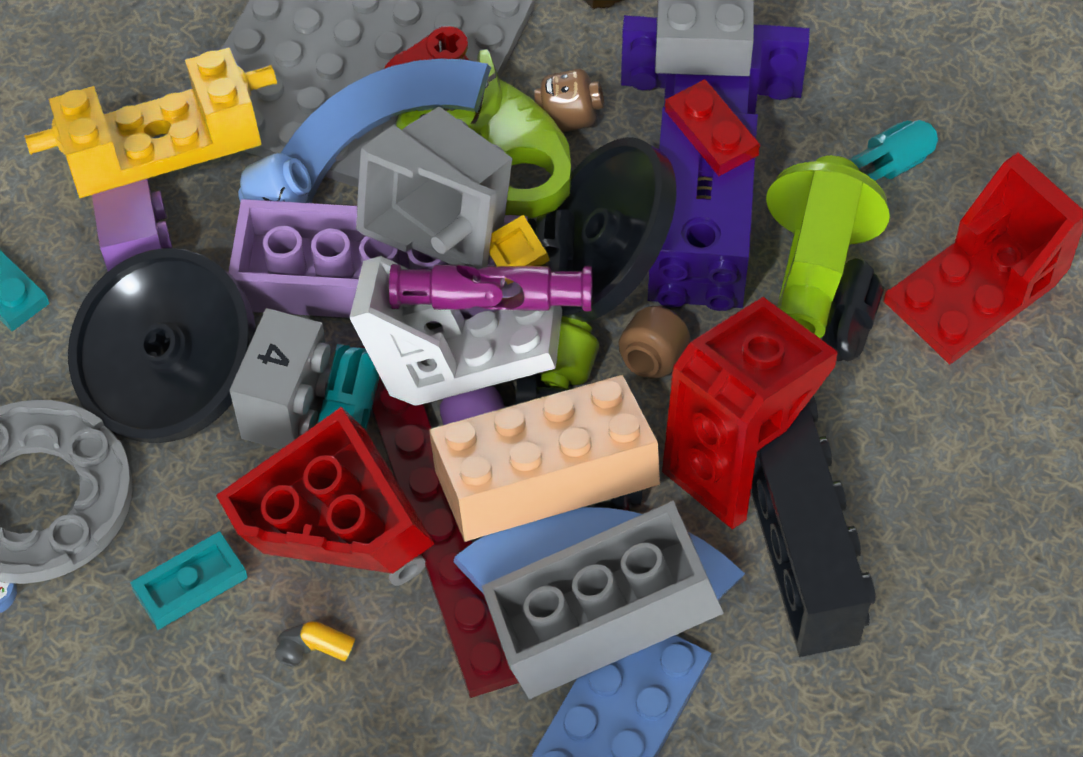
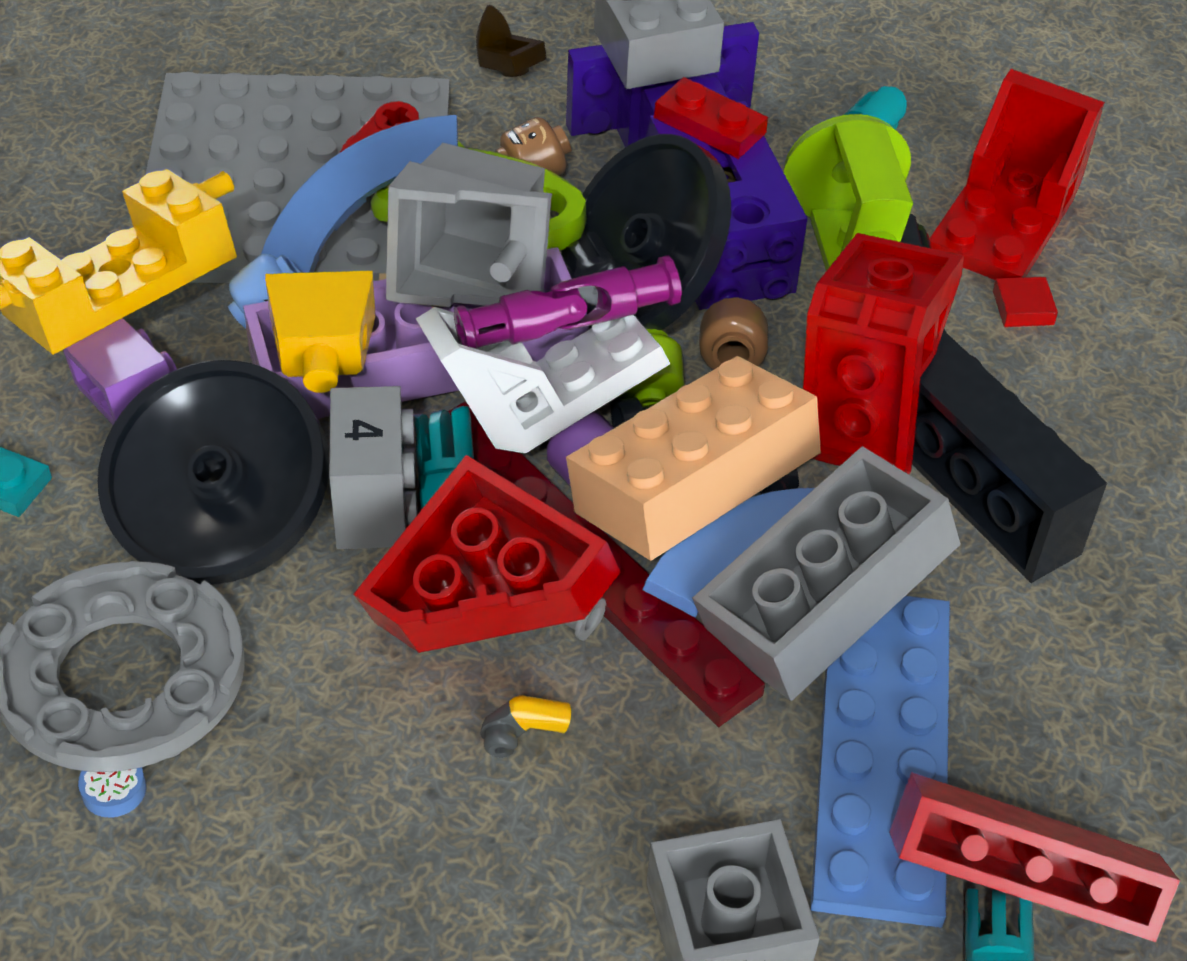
camera: 25 degrees left, 10 degrees down
(188, 580) = (349, 701): teal plate -> none
(287, 243) = (321, 324): none -> yellow torso
(517, 246) = (571, 260): yellow plate -> none
(944, 381) = (1025, 301): none -> red tile

